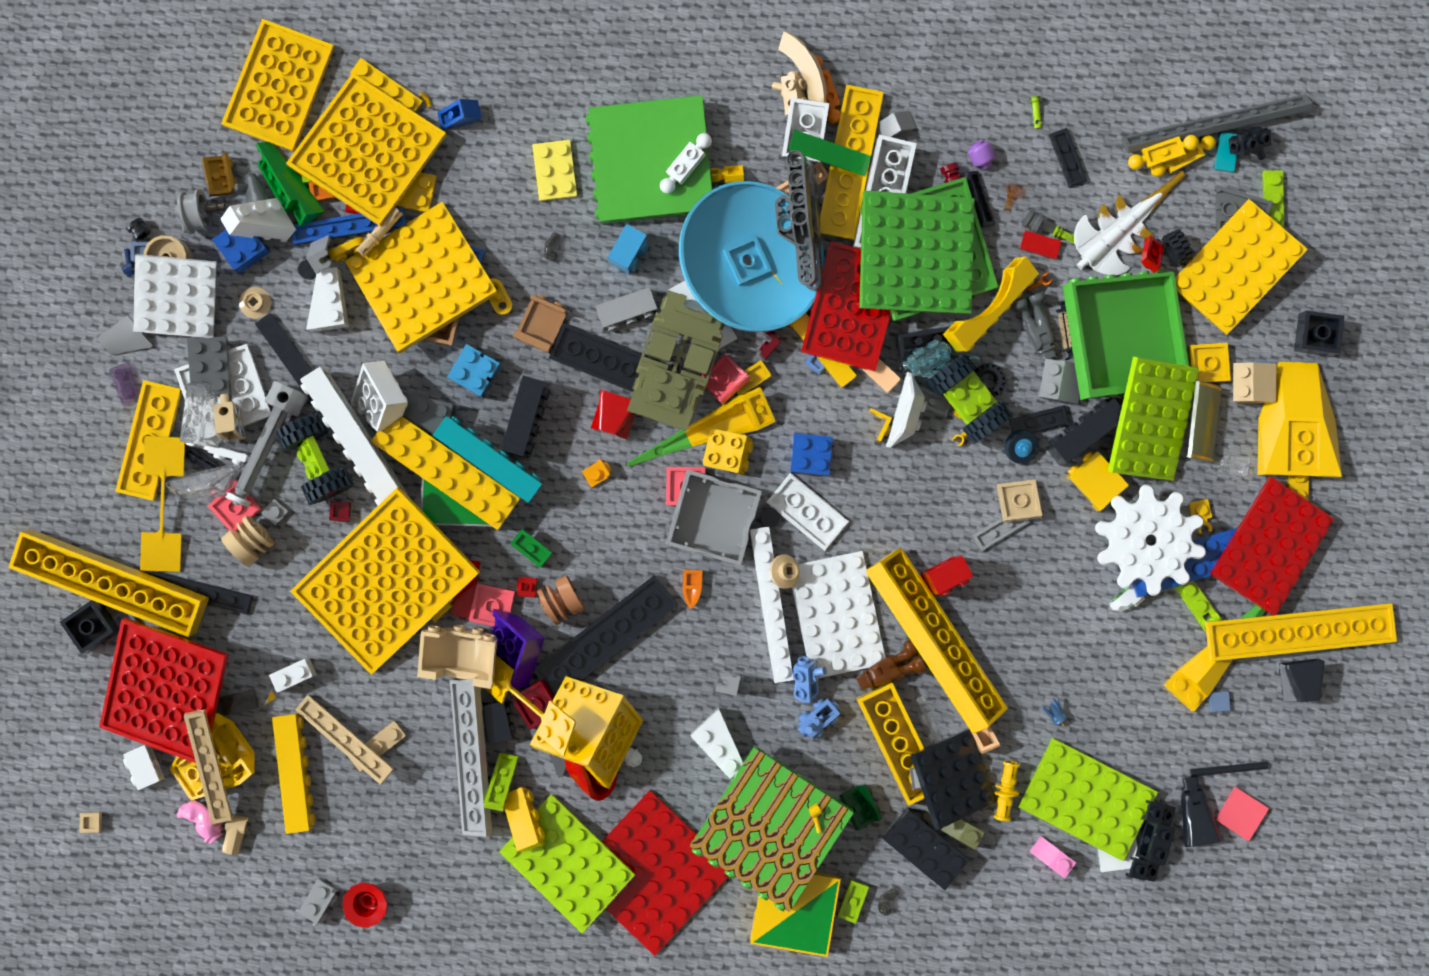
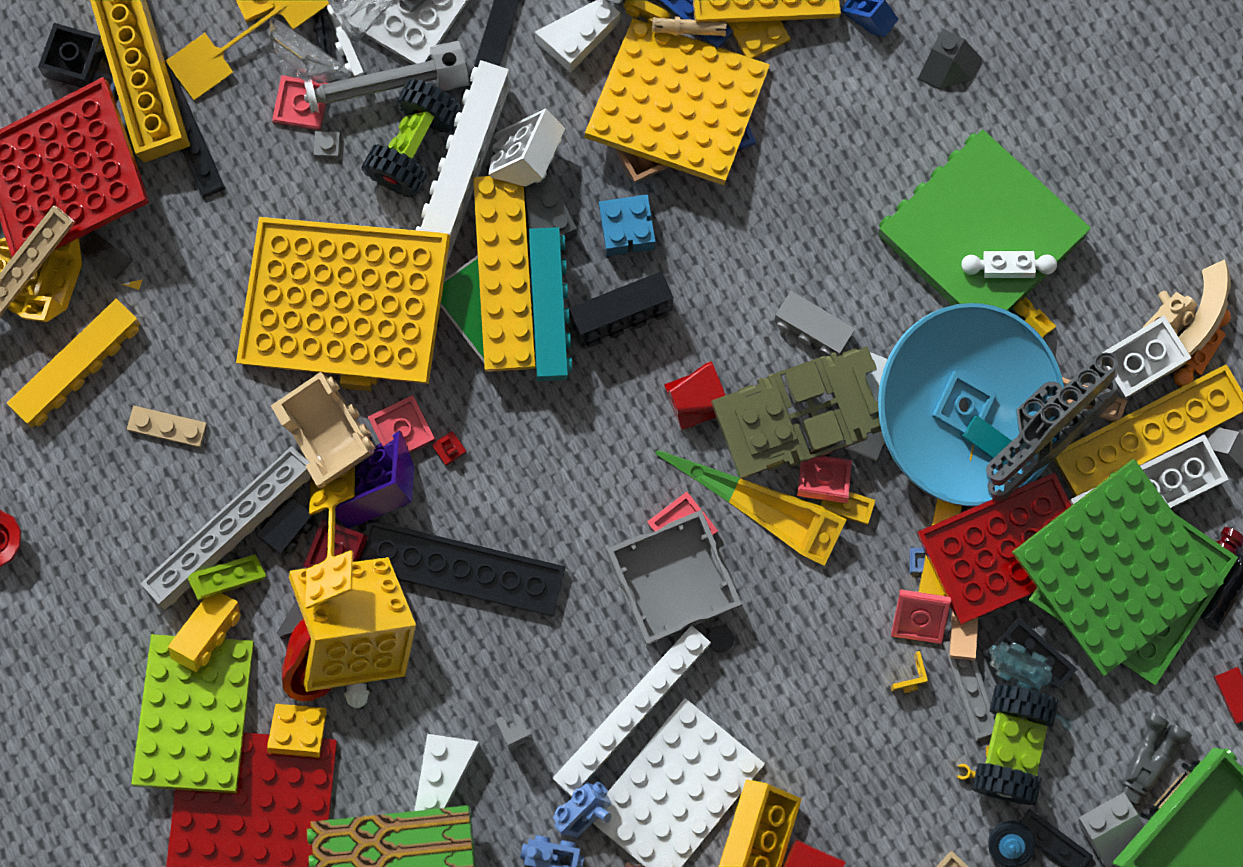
camera: 55 degrees right, 10 degrees down
(228, 419) = (384, 27): tan torso -> none
(244, 544) = (272, 138): tan wheel -> none
(293, 675) = (175, 286): white brick -> none
(340, 511) = (378, 205): dark red plate -> none
(344, 739) = (148, 387): tan plate -> none
(464, 598) = (393, 392): red tile -> none
(502, 297) = (721, 193): yellow plate -> none
(529, 91) = (950, 61): none -> dark grey slope
(531, 548) = (492, 419): green panel -> none
(541, 323) = (728, 253): medium nougat panel -> none
(549, 246) = (812, 201): clear smoke arm -> none
(554, 170) = (892, 147): light yellow plate -> none
(560, 600) = (463, 490): nougat wheel -> none
(597, 357) = (739, 331): black plate -> none
(597, 473) = (623, 427): light orange bracket -> none
(626, 809) = (297, 730): none -> yellow plate
(628, 249) = (874, 278): dark azure brick -> none
(692, 586) = (584, 615): orange plate -> none
(728, 451) = (754, 541): yellow bracket -> none
(768, 347) = (893, 498): dark red bracket -> none
(778, 263) = (985, 437): none -> teal tile
(779, 572) = (671, 689): tan piece -> none
(807, 512) = (758, 674): white tile -> none
(811, 454) = (820, 628): blue brick -> none
(830, 152) = (1143, 400): green sticker -> none
(851, 390) = (920, 616): none -> coral tile
(907, 412) = (947, 693): white wedge -> none
(998, 375) = (1066, 754): black tyre -> none
(1015, 279) = (1180, 694): yellow arch -> none
(1040, 282) = (1197, 726): orange hand -> none

